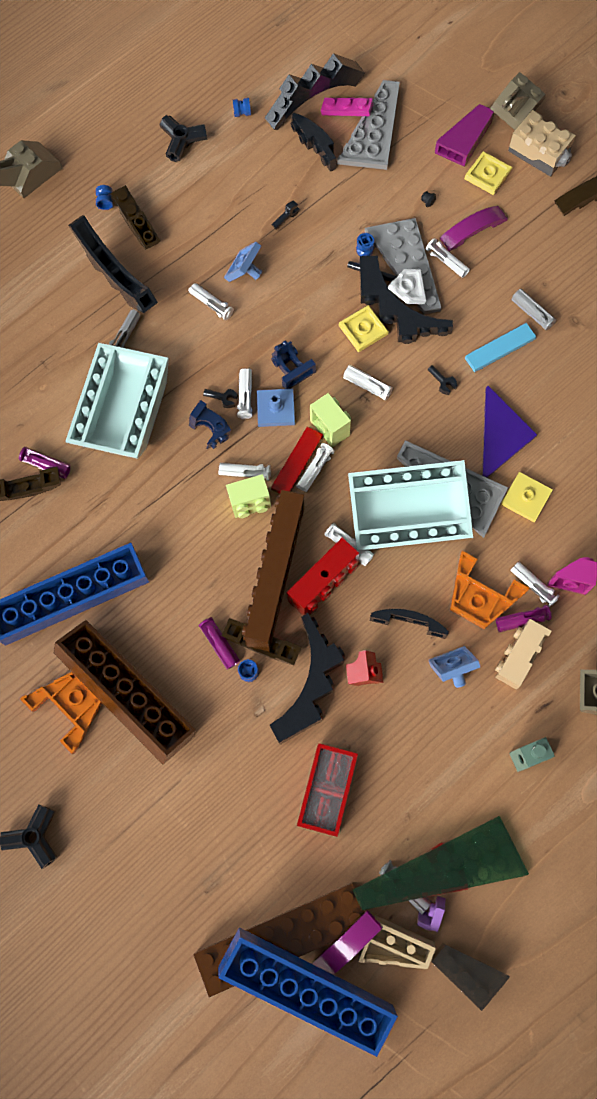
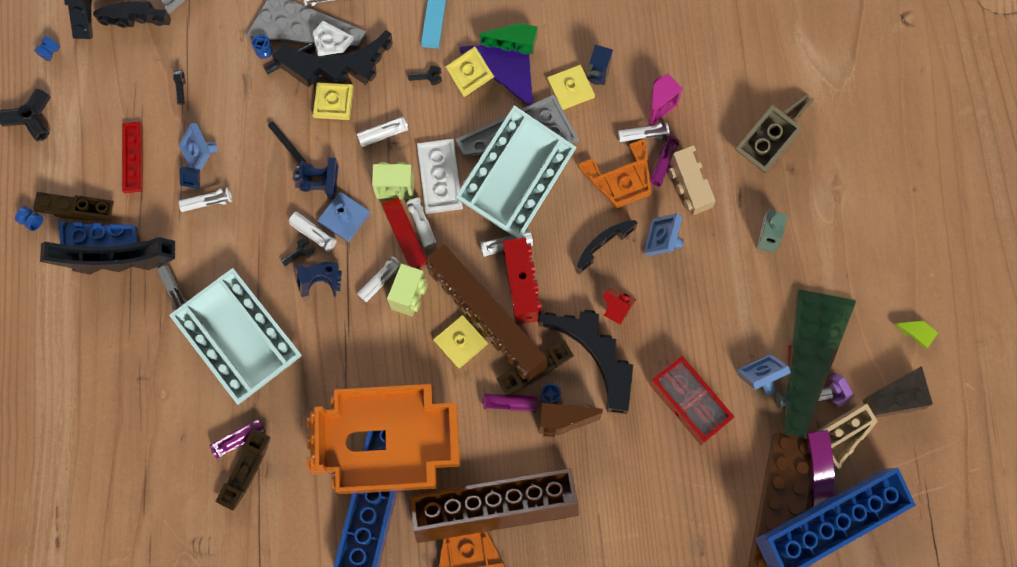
camera: 55 degrees left, 0 degrees up
(125, 250) = (97, 234): none -> blue wing
(134, 591) = (417, 439): none -> orange panel
(205, 227) = (132, 157): none -> red tile
(219, 276) = (189, 177): none -> dark blue tile
(227, 688) = (560, 419): none -> reddish brown slope
(240, 569) = (460, 342): none -> light yellow plate
(302, 321) = (288, 145): none -> black bar
(367, 449) = (439, 176): none -> white tile
(397, 836) = (763, 373): none -> medium blue tile
(472, 409) = (469, 71): none -> light yellow plate
(531, 421) = (514, 37): none -> green slope
(544, 952) = (919, 331): none -> lime slope
(563, 504) = (599, 65): none -> dark blue brick

